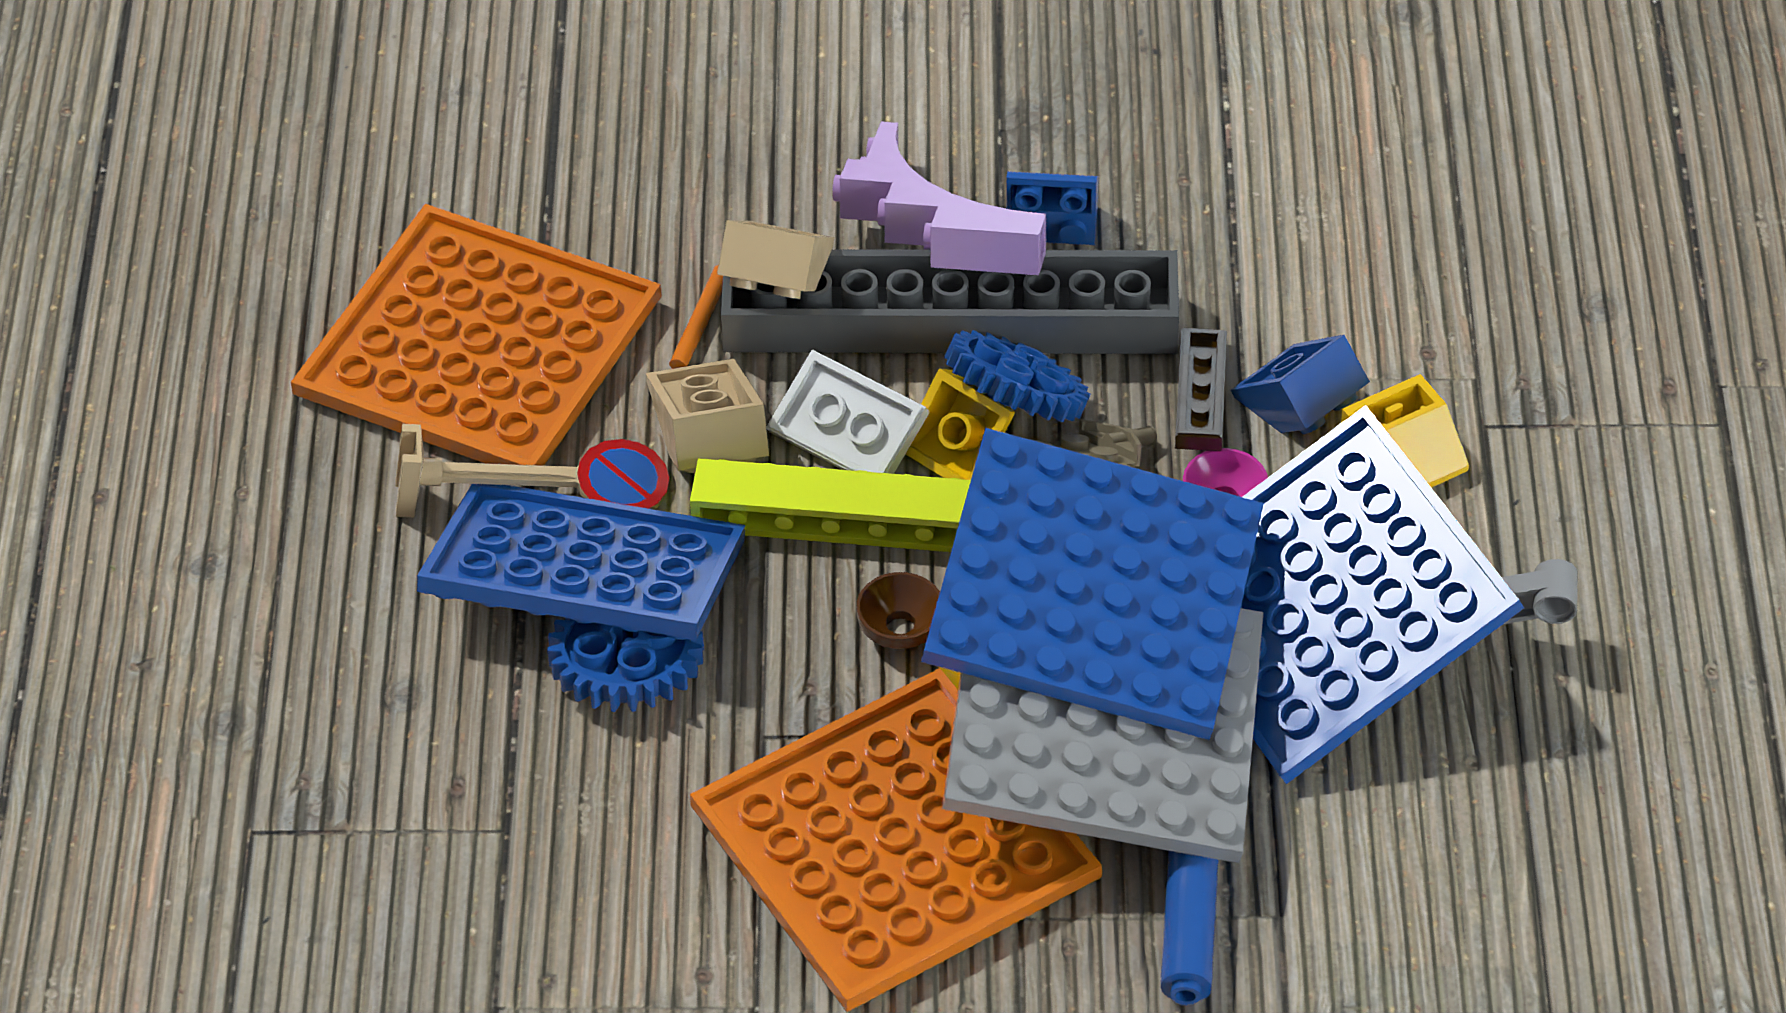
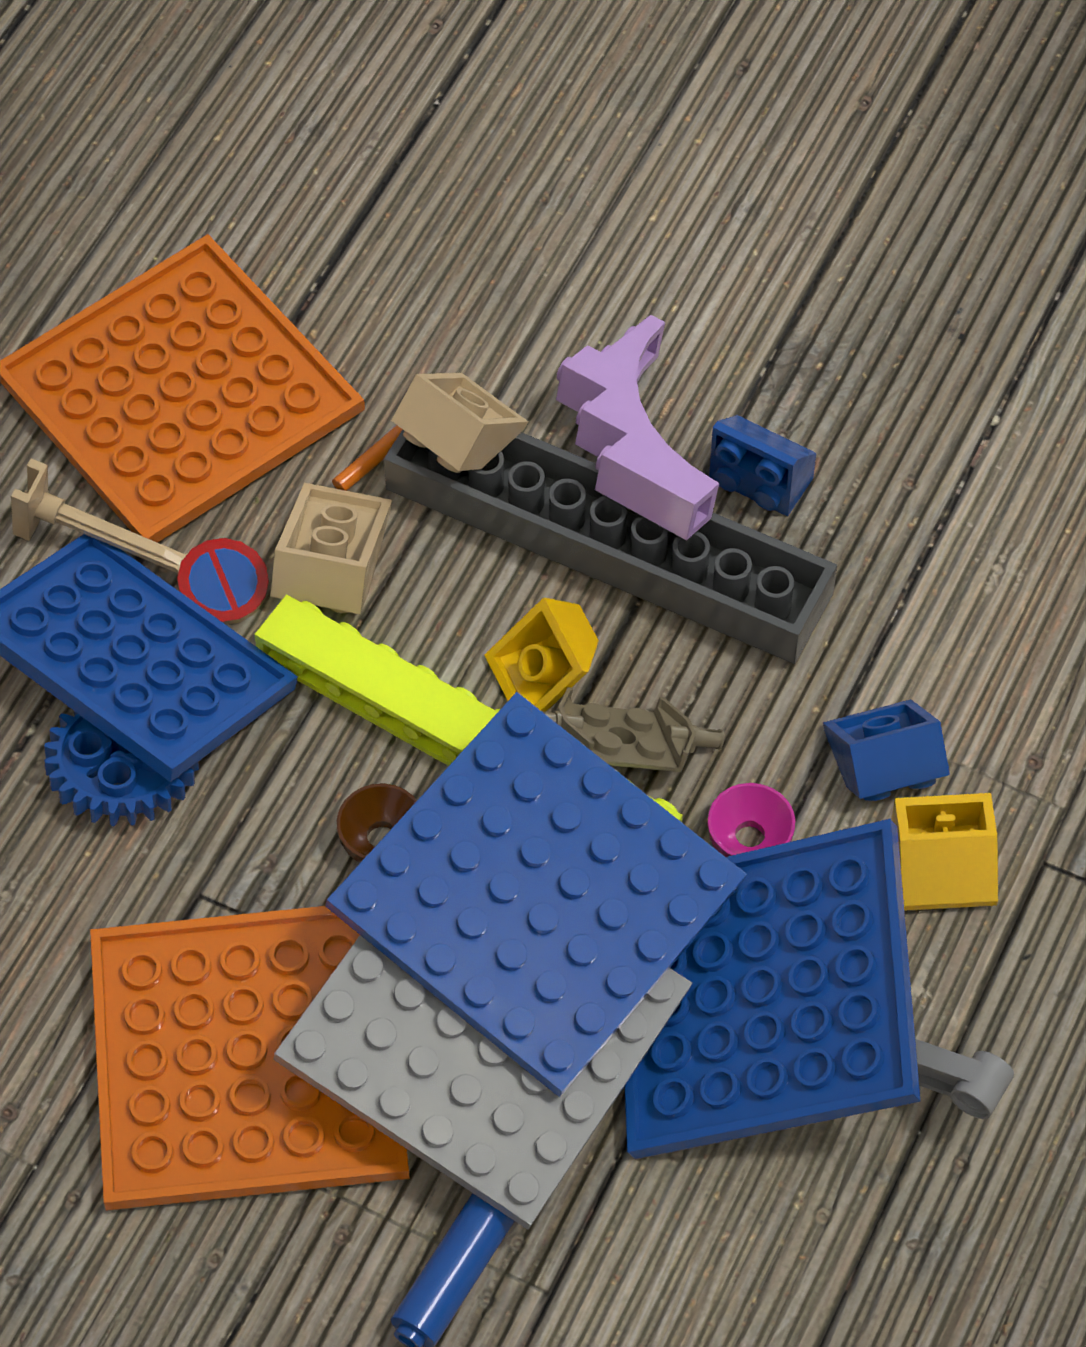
camera: 25 degrees right, 10 degrees up
(846, 417) = (448, 608): white tile -> none
(1017, 376) = (617, 632): blue gear -> none
(1201, 389) = (787, 714): tile -> none

